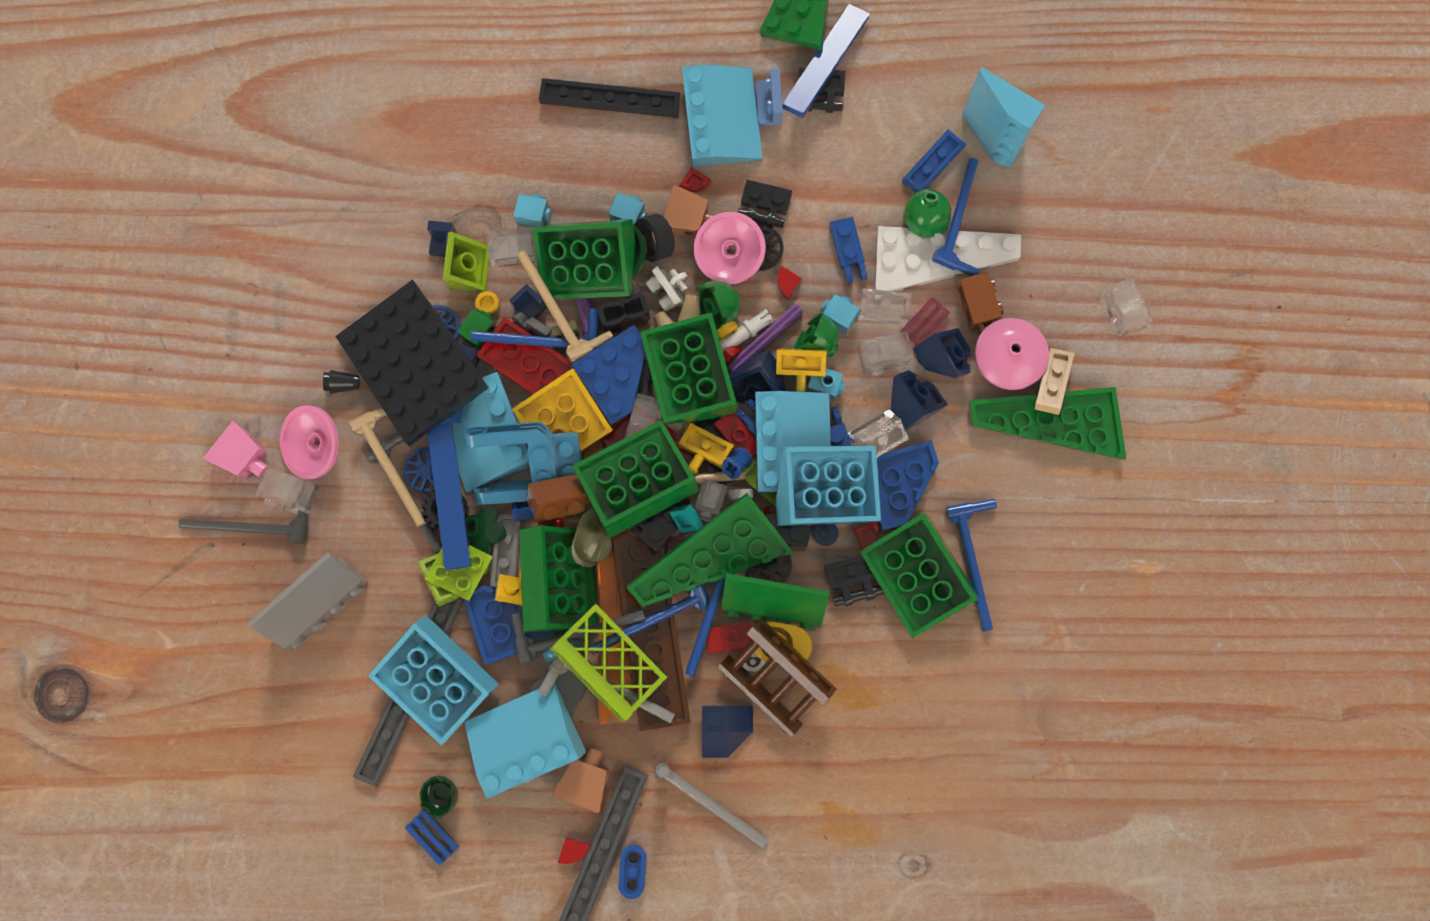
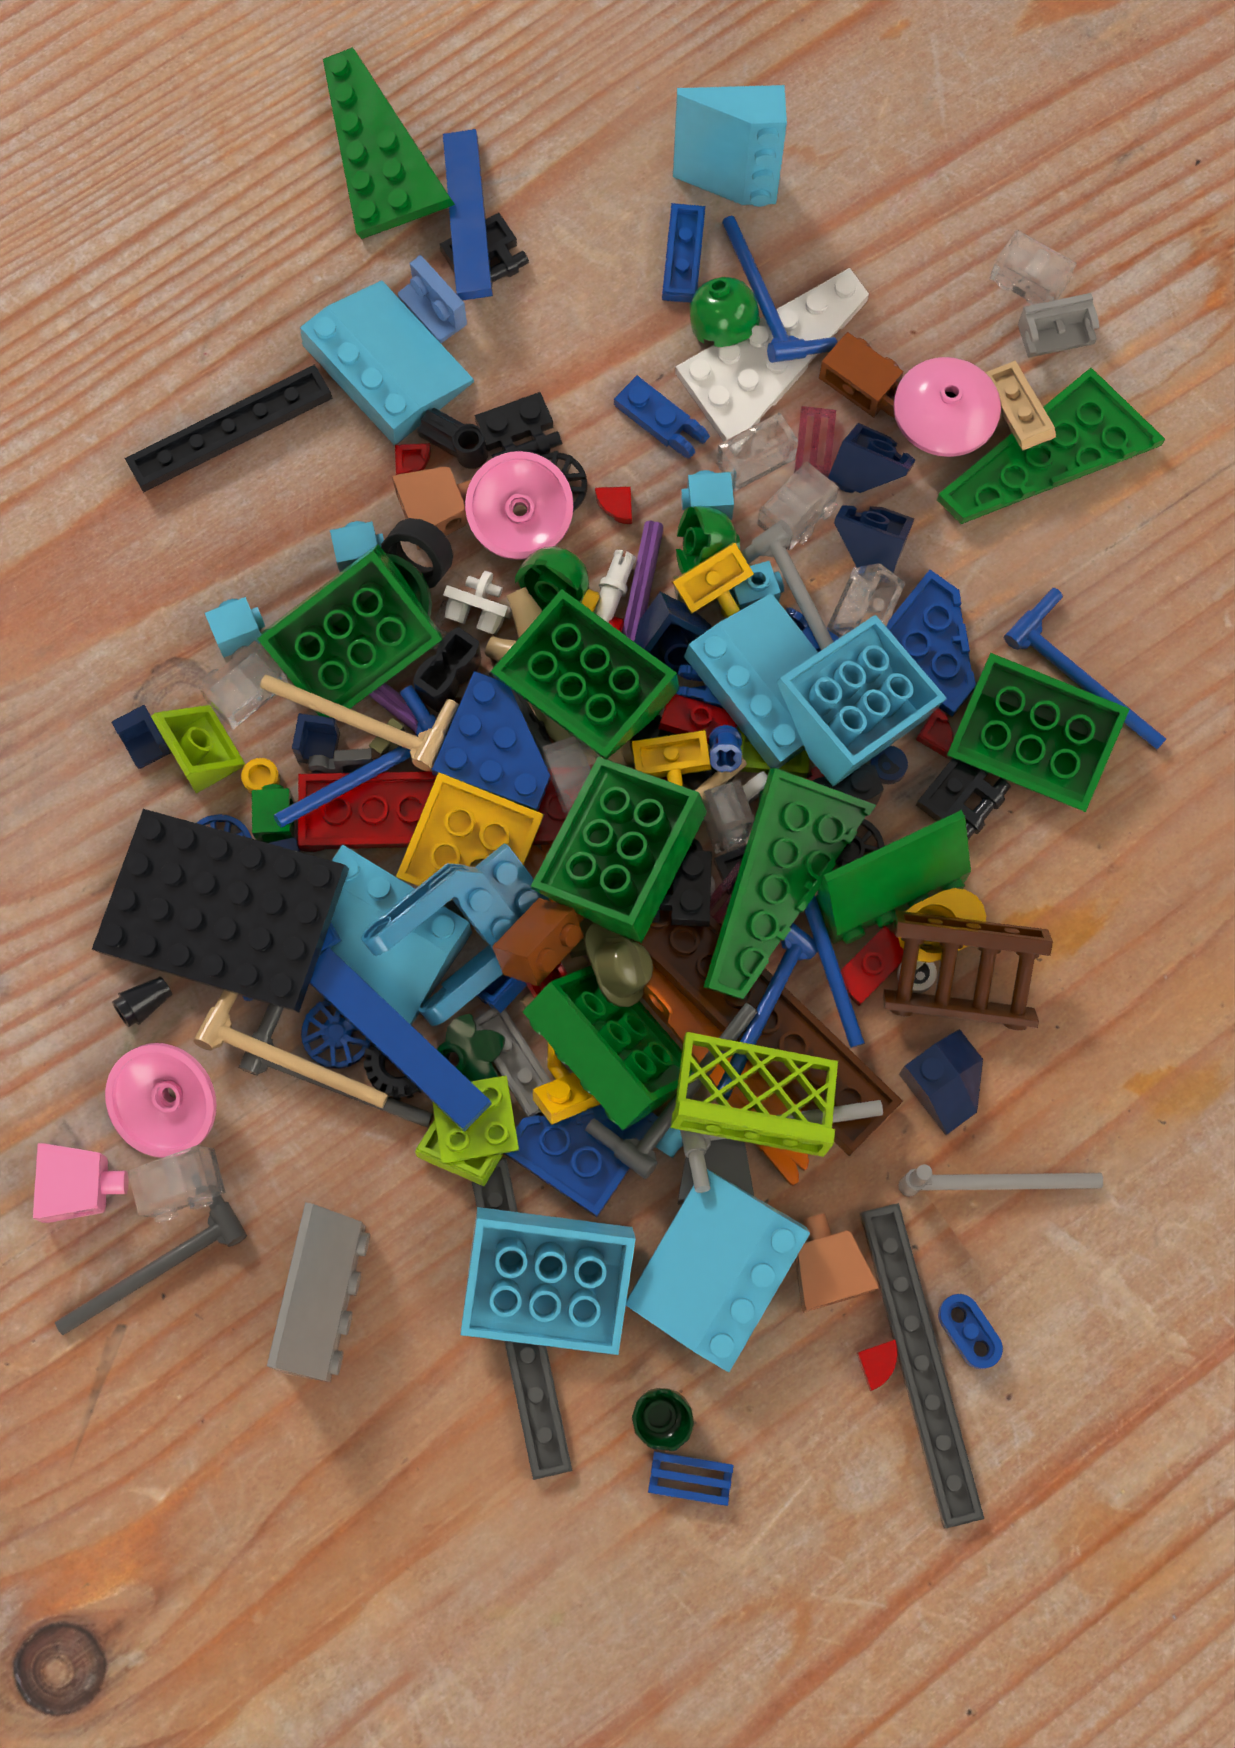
camera: 40 degrees left, 5 degrees down
(686, 518) = (717, 854): teal plate -> none
(725, 184) = (453, 437): none -> black piece
(852, 365) = (774, 544): none -> light grey bar
(1116, 349) = (1058, 325): none -> light grey hinge

